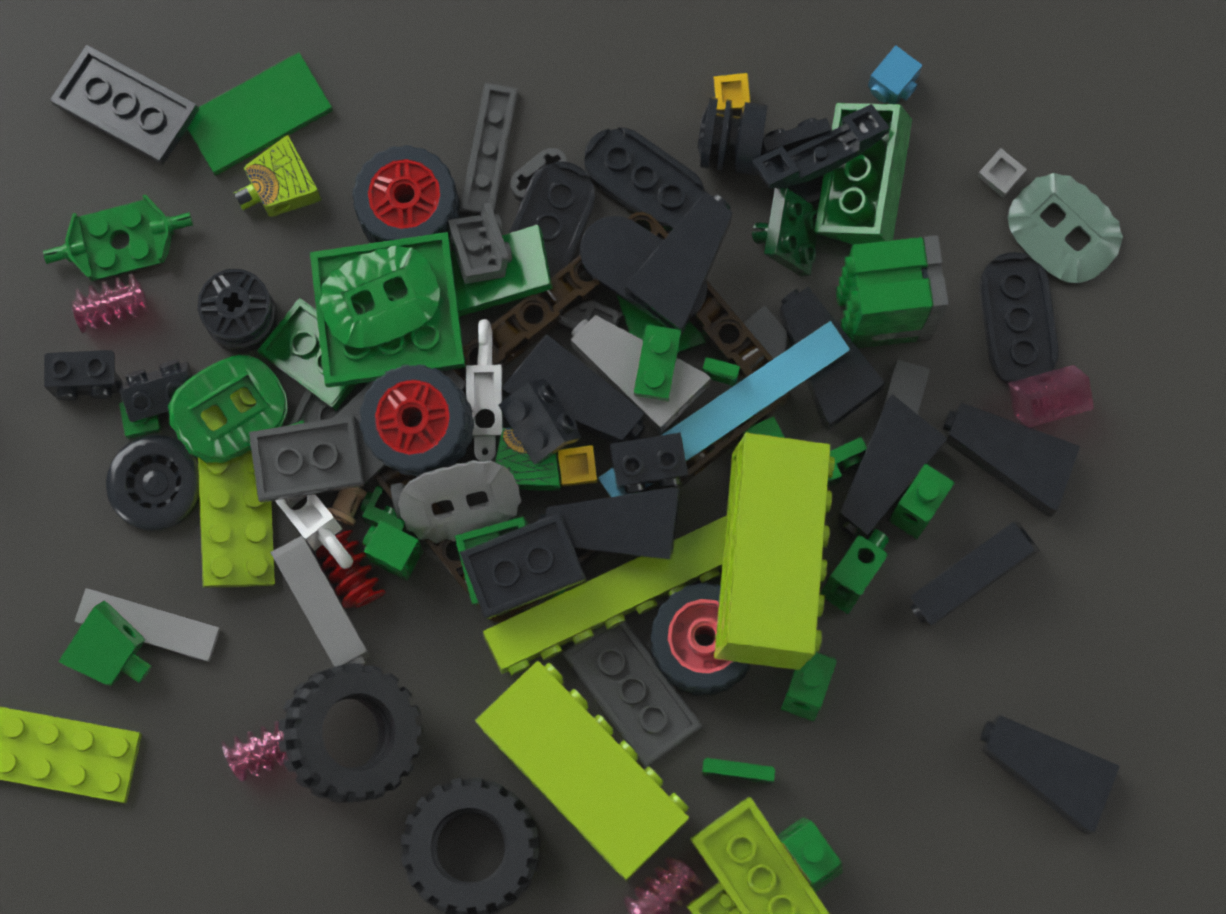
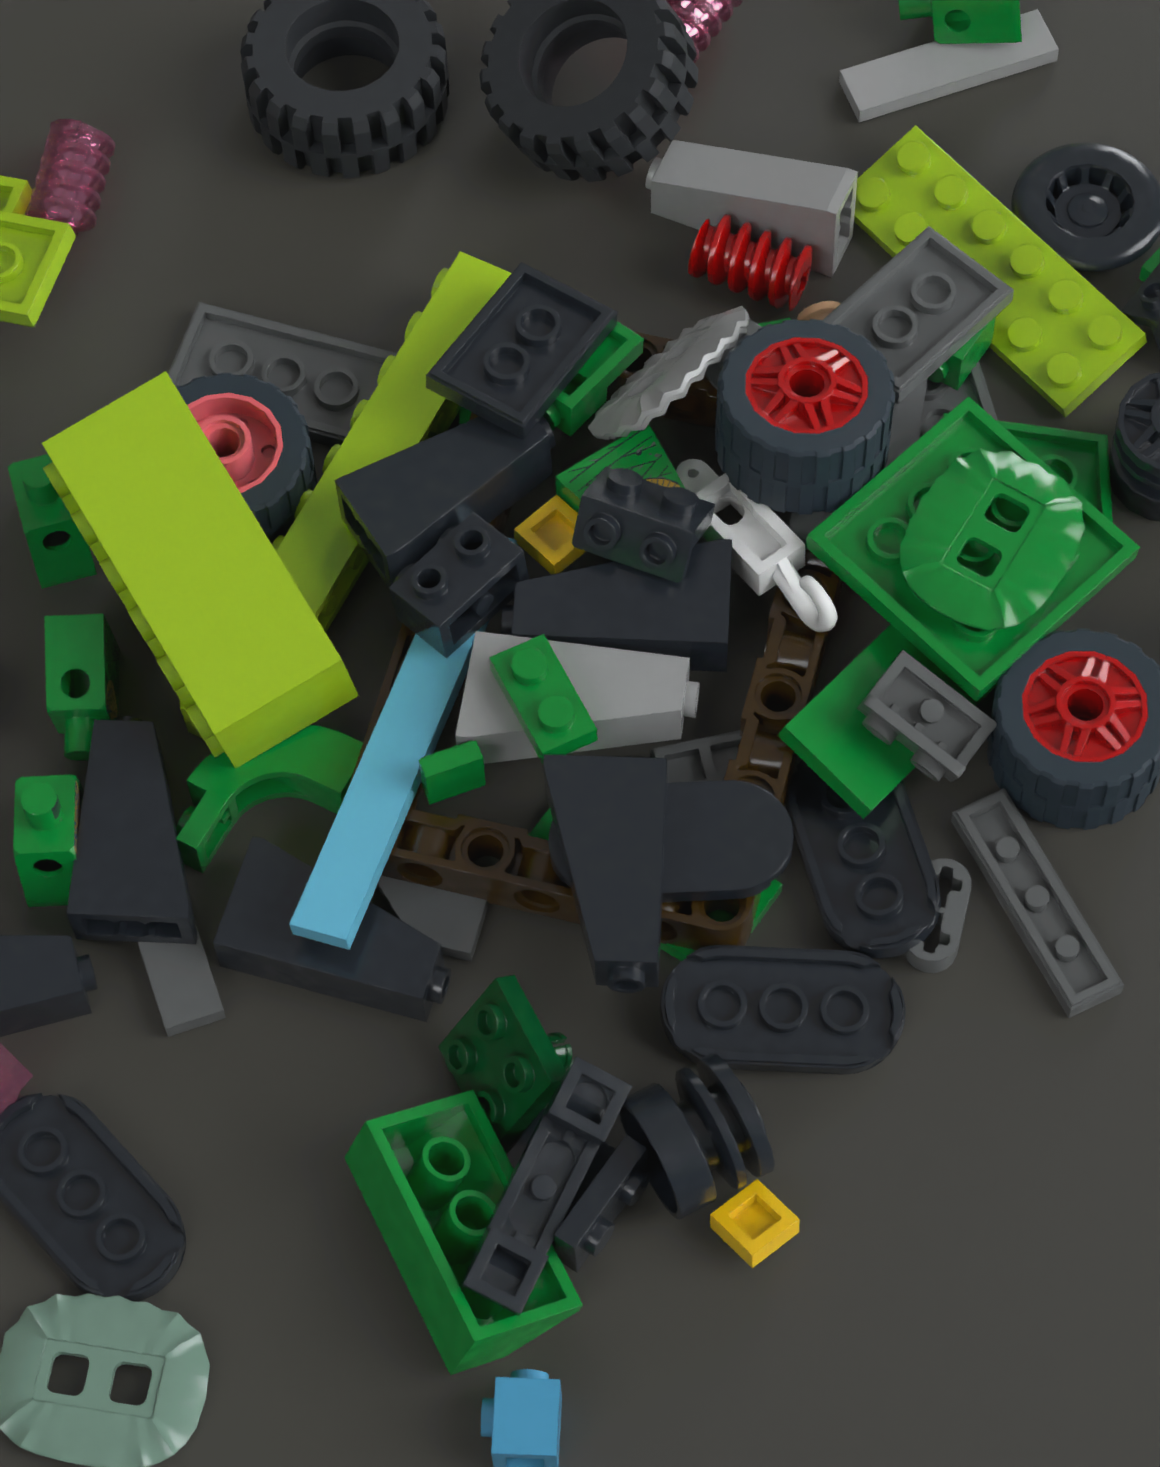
camera: 145 degrees right, 15 degrees down
(213, 388) = (1111, 332): green piece -> none
(317, 526) = (834, 259): white piece -> none
(392, 550) = (714, 284): green brick -> none
(583, 769) = (268, 225): lime brick -> none
(738, 770) = (73, 366): green tile -> none
(892, 291) = (281, 1028): green piece -> none
(1001, 172) = (254, 1393): light grey plate -> none

